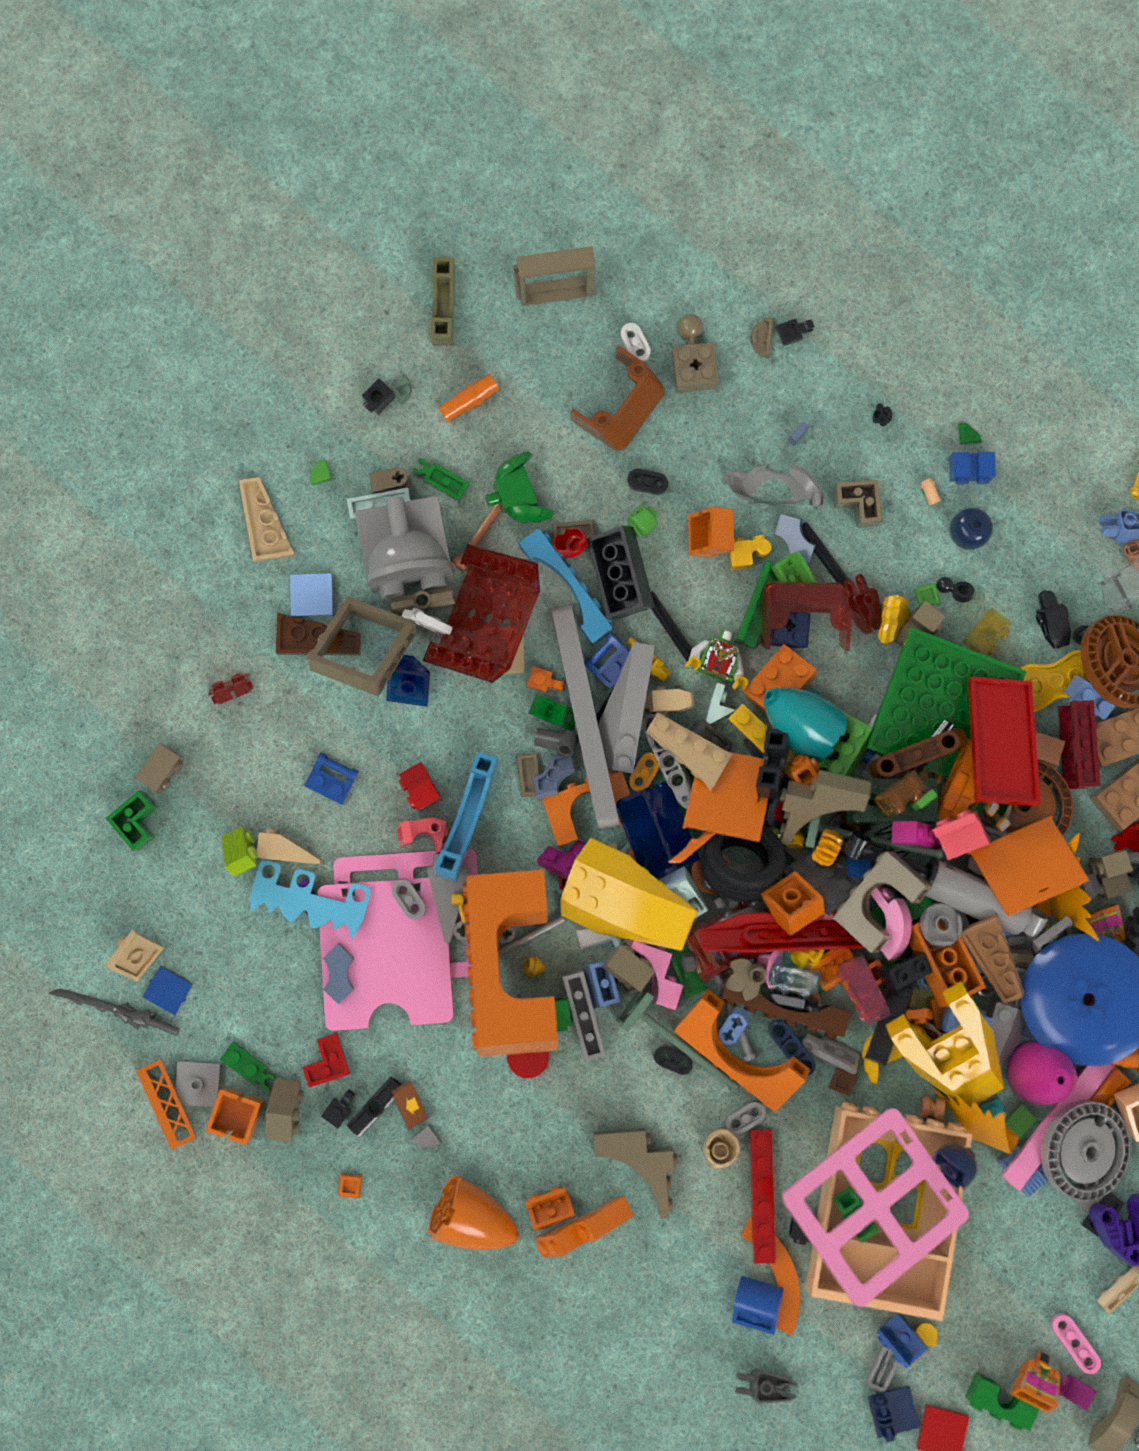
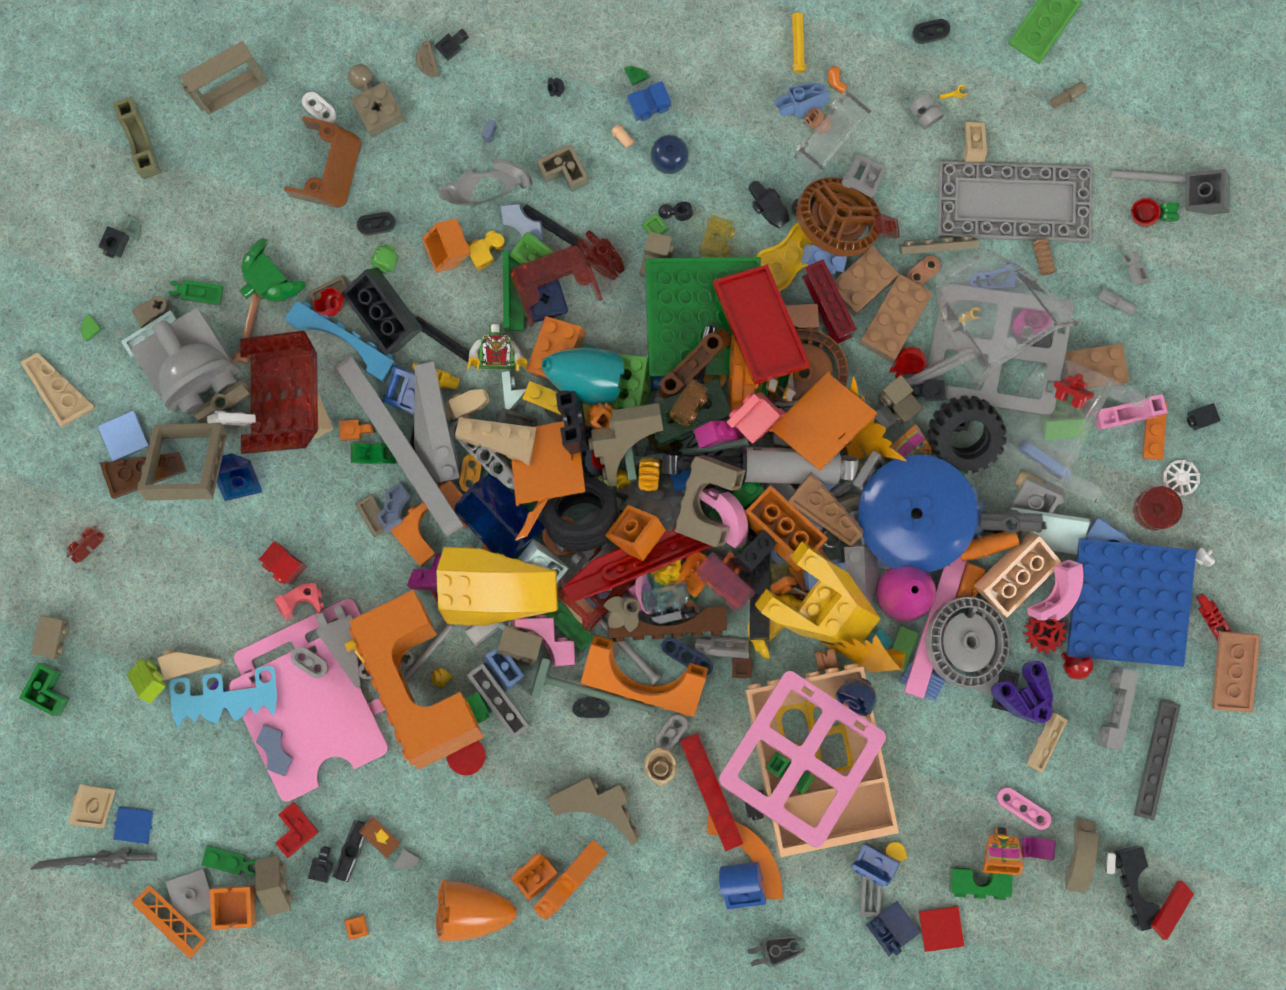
camera: 20 degrees left, 0 degrees up
(327, 784) = (203, 593): blue plate -> none
(468, 815) = (332, 596): dark azure arch -> none
(469, 397) = (193, 212): orange piece -> none
(562, 743) = (390, 477): dark grey piece -> none
(688, 961) = (569, 618): dark grey tile -> none
(730, 1024) = (626, 657): medium blue beam -> none
(893, 618) = (631, 256): yellow rock -> none
(923, 801) = (711, 400): bright green tile -> none
(930, 929) = (767, 511): light grey tile -> none

